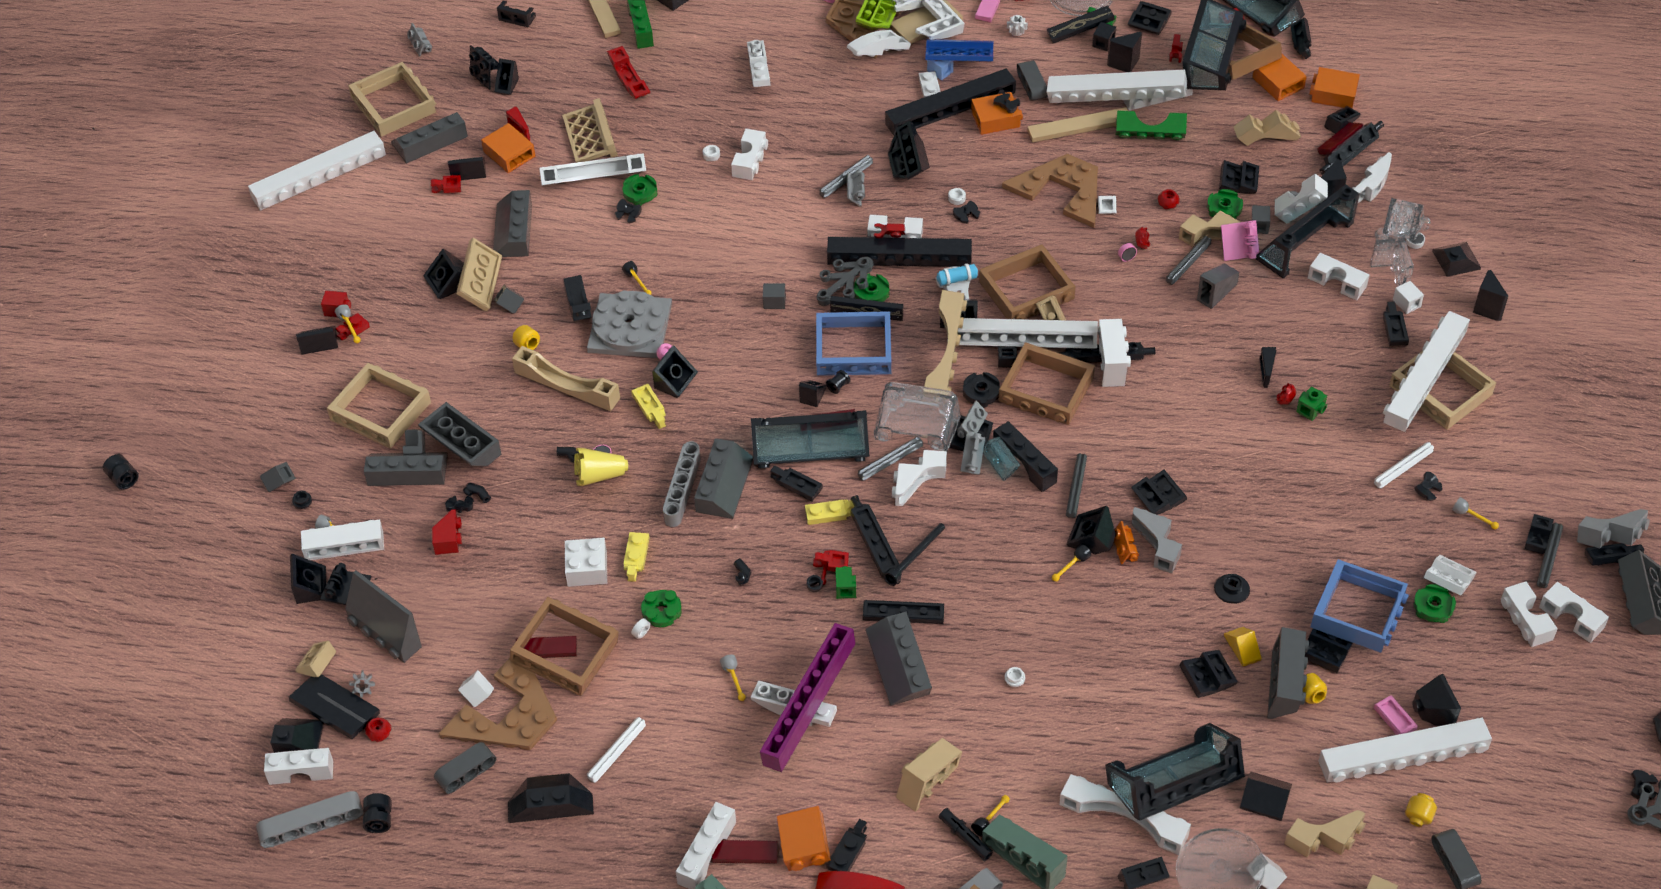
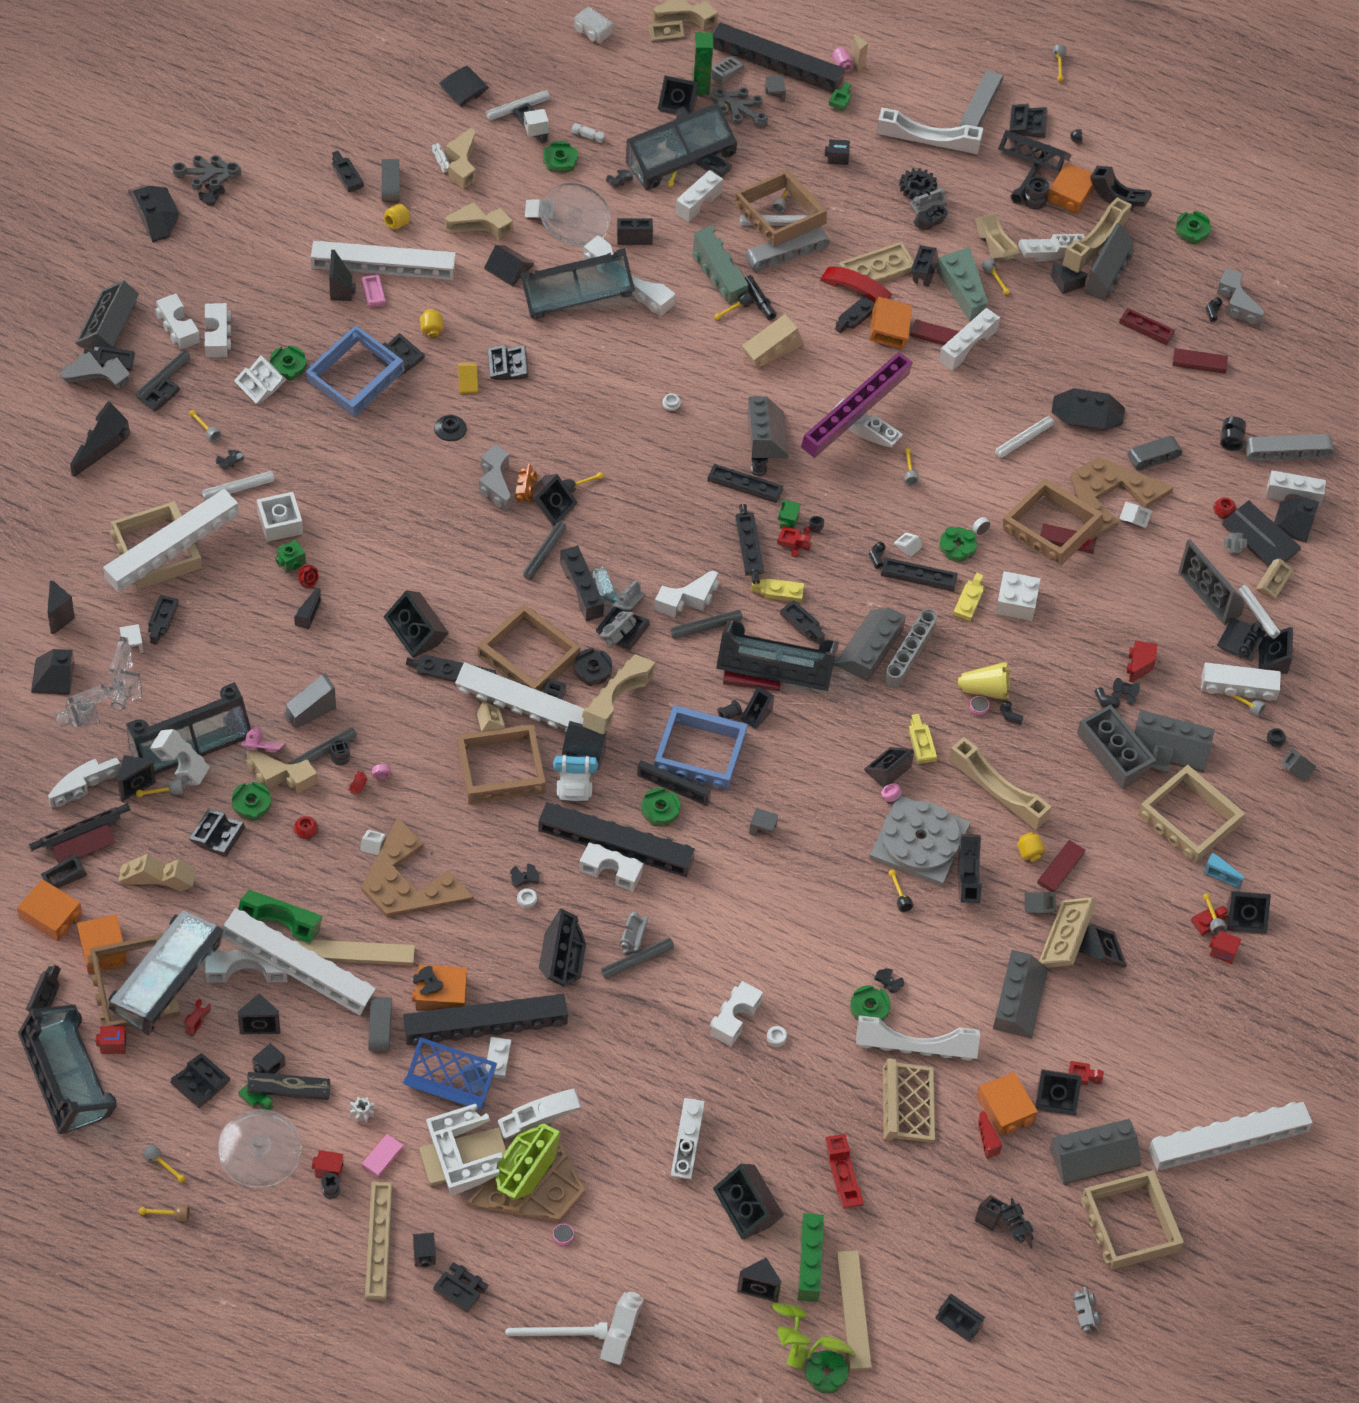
camera: 170 degrees left, 5 degrees up
(329, 612) = (1258, 611): none -> white axle
(343, 363) = (1223, 871): none -> medium azure slope
(495, 336) = (1061, 866): none -> dark red tile
(693, 566) = (919, 574): none -> black tile
(696, 41) = (748, 1200): none -> black slope
(714, 595) = (908, 544): none -> white slope
(863, 266) = (683, 821): dark grey plant -> none
(893, 230) = (617, 845): red plate -> none
(893, 575) = (745, 501): black piece -> none
(918, 413) = (672, 638): clear windscreen -> none
(1113, 352) = (455, 646): white wedge -> none
(1159, 493) = (473, 522): black slope -> none
(1161, 380) = (415, 623): none -> black slope
(1171, 256) = (340, 752): none -> black wheel
(1262, 217) = (226, 766): dark grey panel -> none
(1287, 673) = (449, 329): dark grey slope -> none
(1326, 268) = (192, 694): white arch -> none
(1344, 434) = (279, 516): none -> white brick
(1513, 856) = (346, 172): none -> black hinge
(1561, 468) = (105, 437): none -> black wedge

